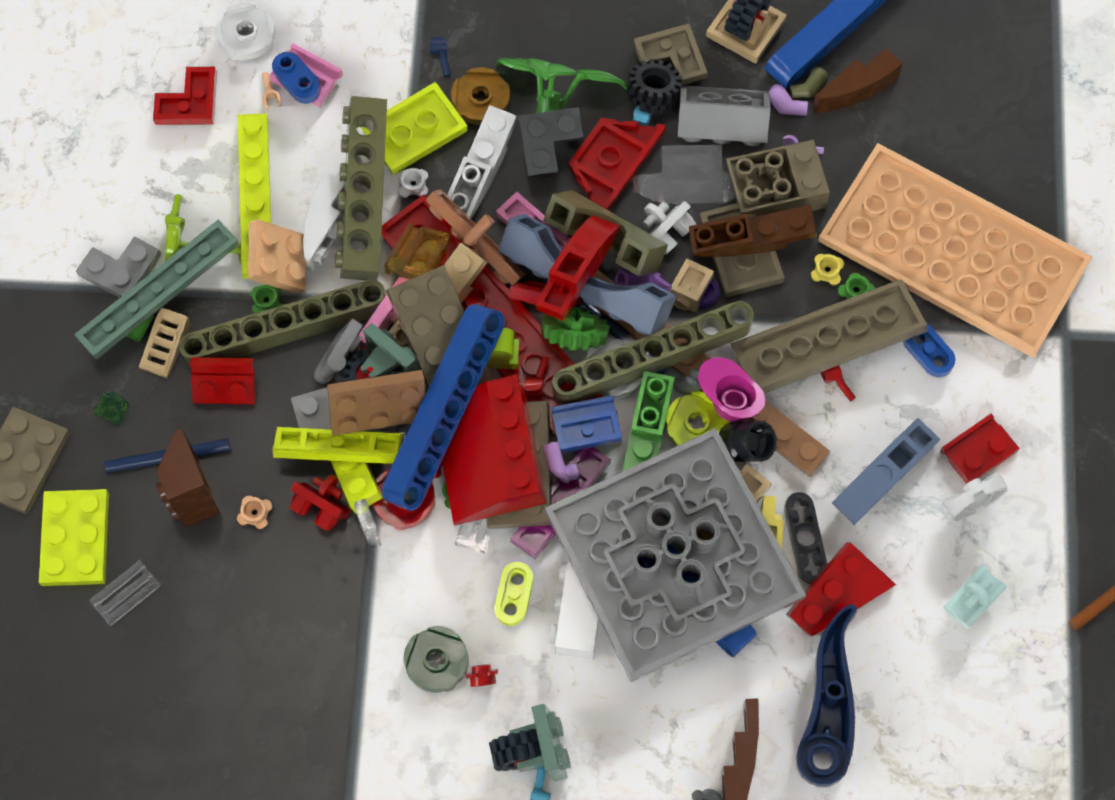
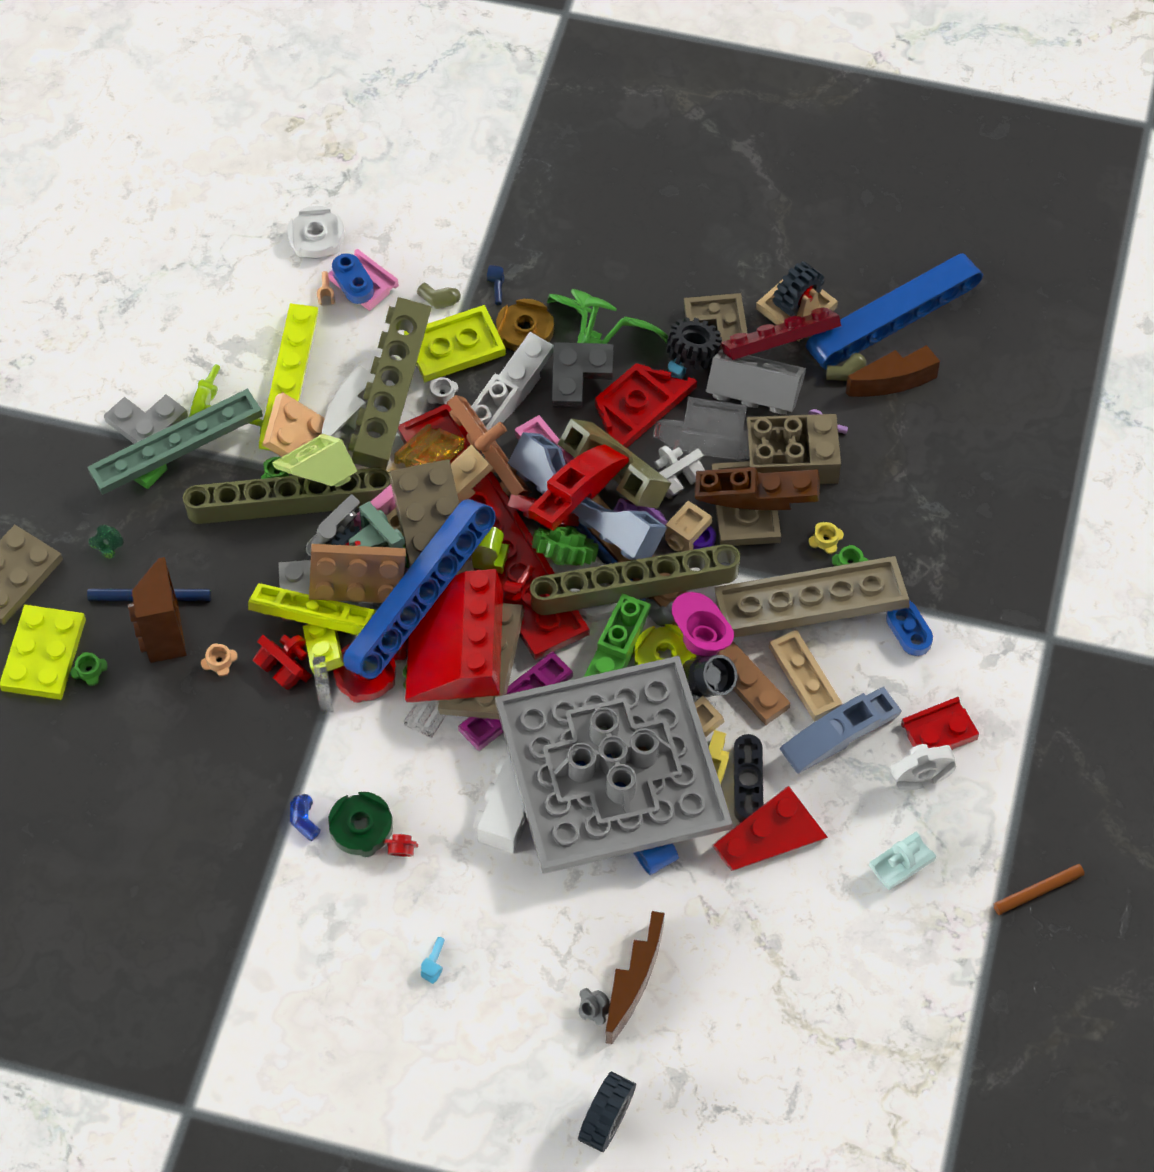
camera: 10 degrees right, 10 degrees down
(121, 538) = (88, 660): none -> bright green plate
(132, 601) = (80, 714): clear tile -> none
(159, 328) = (176, 475): tan slope -> none
(193, 106) = (250, 289): red plate -> none
(223, 380) = (217, 535): red plate -> none
(309, 287) = (319, 460): none -> yellowish green slope
(373, 662) = (299, 818): none -> clear blue arm
(387, 81) = (439, 298): none -> olive arm
(512, 594) = (448, 779): neon yellow plate -> none
(533, 746) = (434, 916): plate -> none
(556, 464) = (517, 663): lavender arm -> none
(586, 424) = (555, 632): blue plate -> none
(733, 66) = (771, 336): none -> dark red plate
(784, 104) = (817, 381): lavender arm -> none
(833, 710) = (734, 941): dark blue animal -> none
(835, 374) = (810, 633): red hand -> none
(839, 419) = (805, 675): none -> tan plate
(955, 249) = (957, 541): light nougat plate -> none

